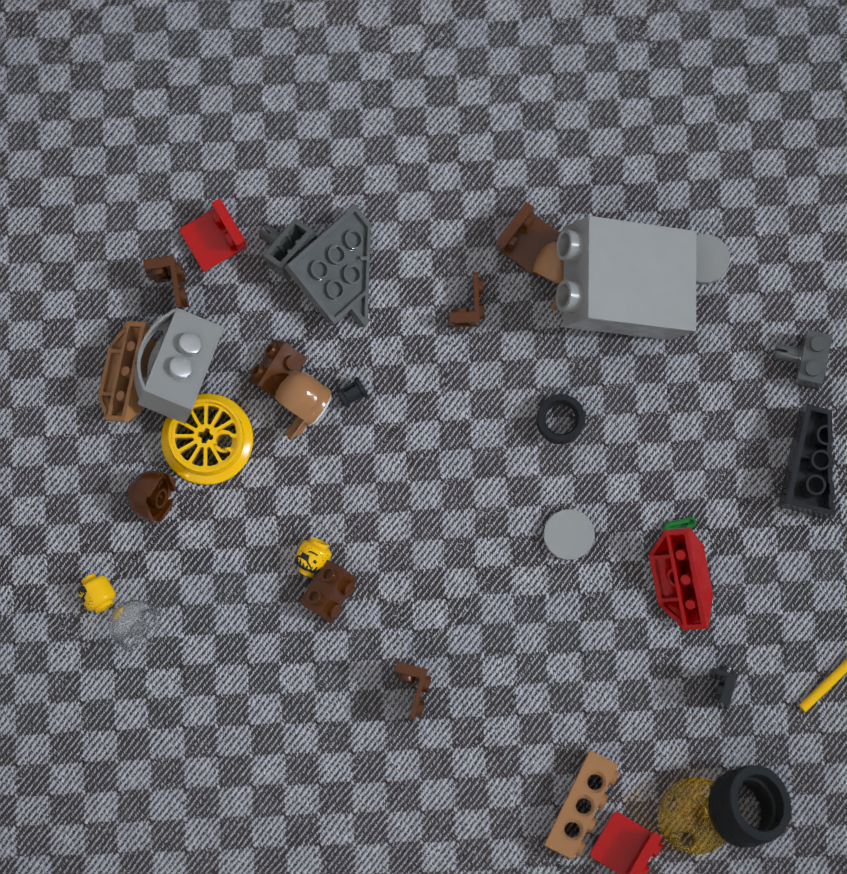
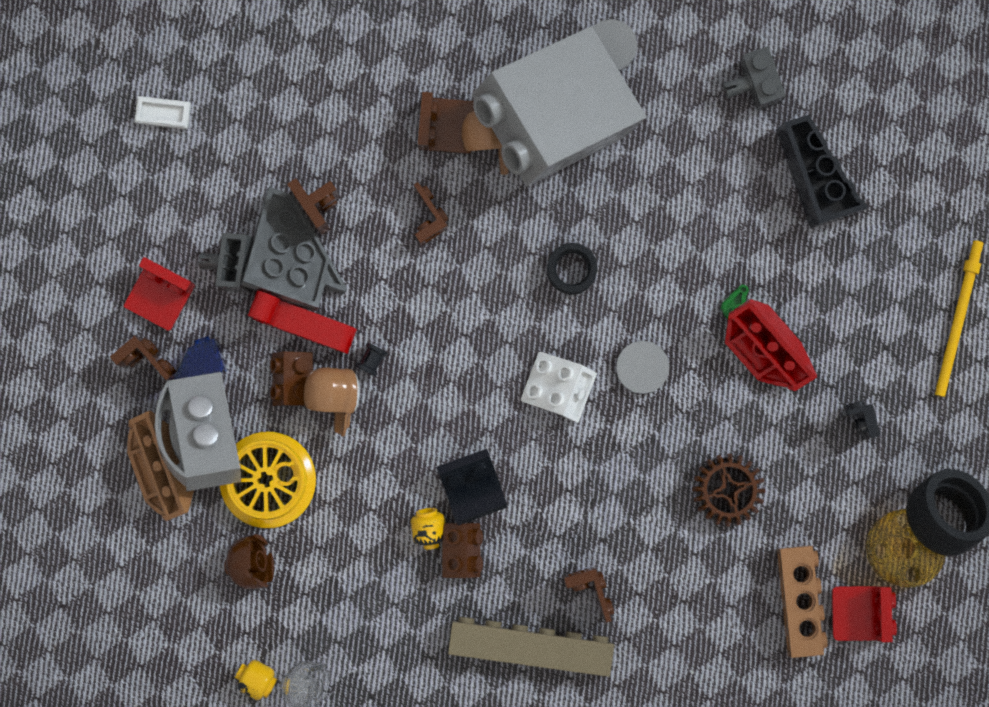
camera: 30 degrees left, 5 degrees up
(216, 308) = (202, 359): none -> clear blue slope
(307, 94) = (162, 112): none -> white tile
(313, 329) = (301, 322): none -> red beam
(336, 706) = (530, 647): none -> dark tan brick
(369, 543) = (472, 487): none -> black bracket
(388, 239) = (322, 199): none -> reddish brown bracket
(491, 508) = (559, 386): none -> white bracket
(583, 656) = (733, 501): none -> reddish brown gear

